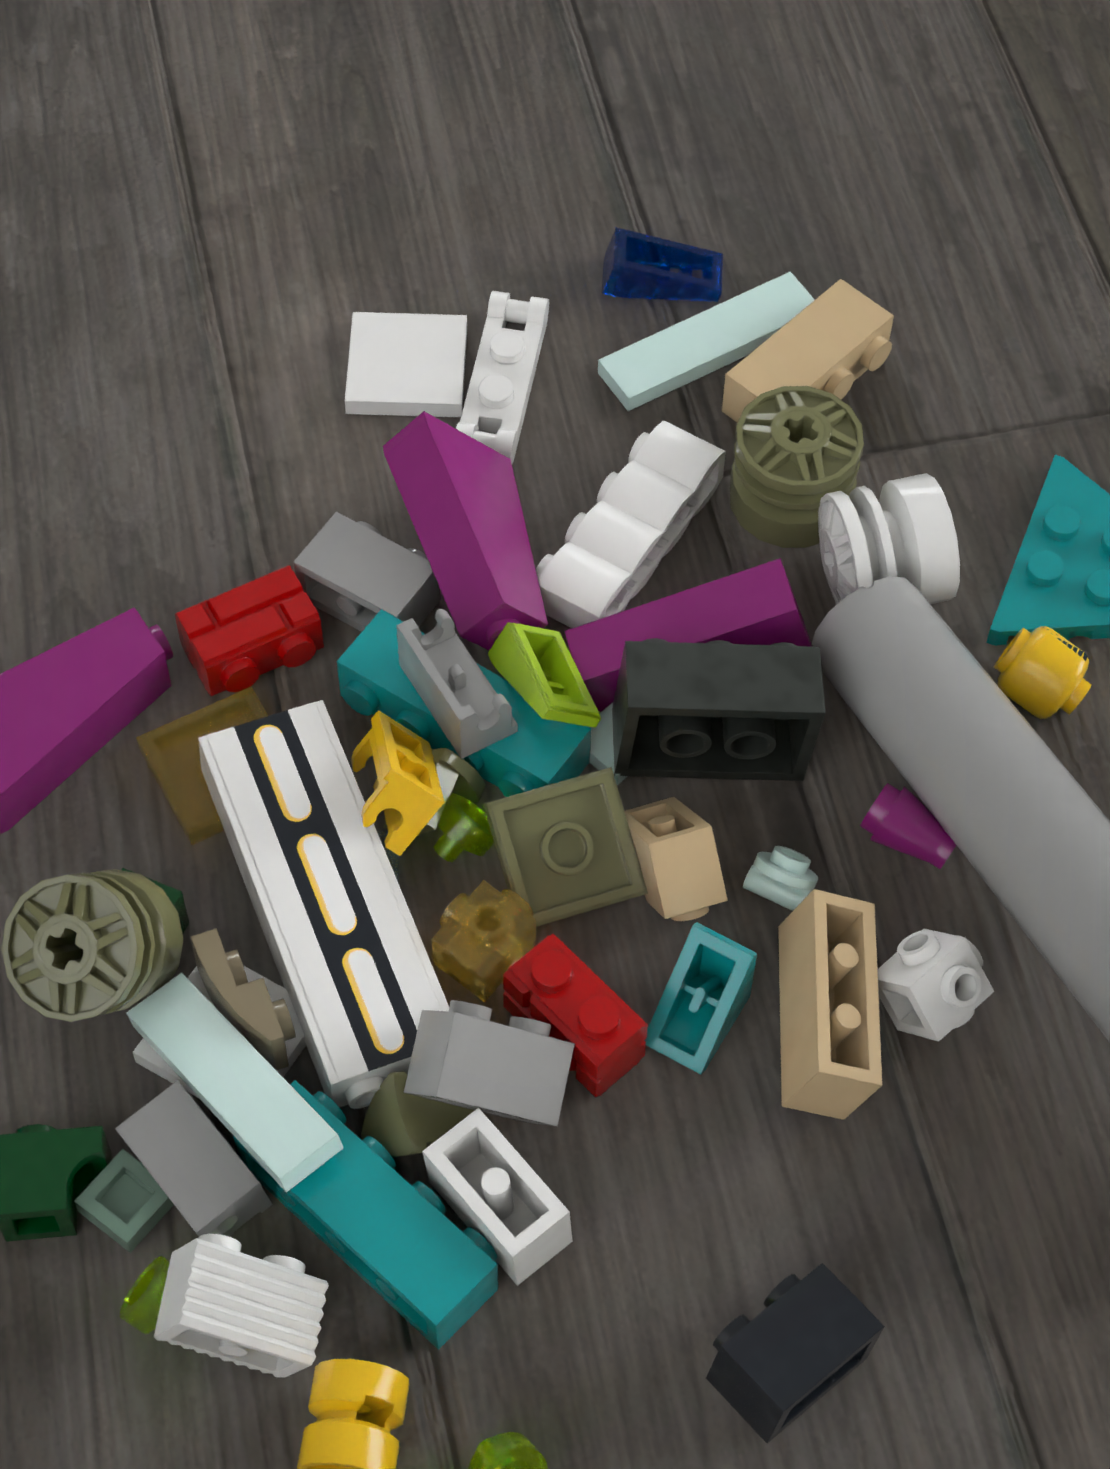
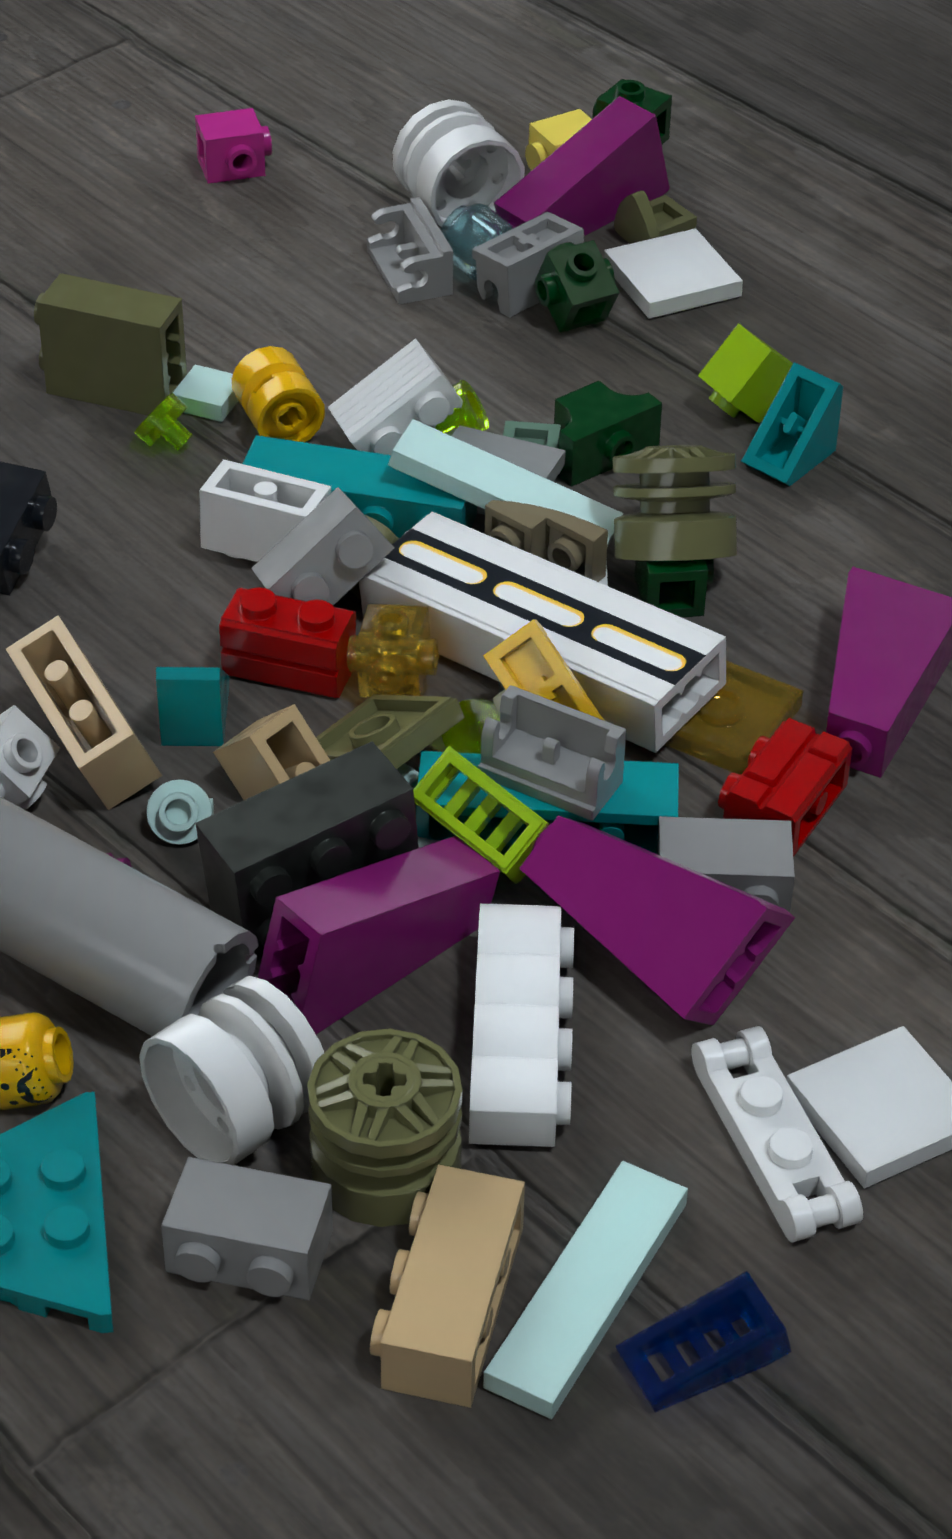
camera: 150 degrees right, 15 degrees down
(922, 440) = (247, 1228): none -> light grey brick

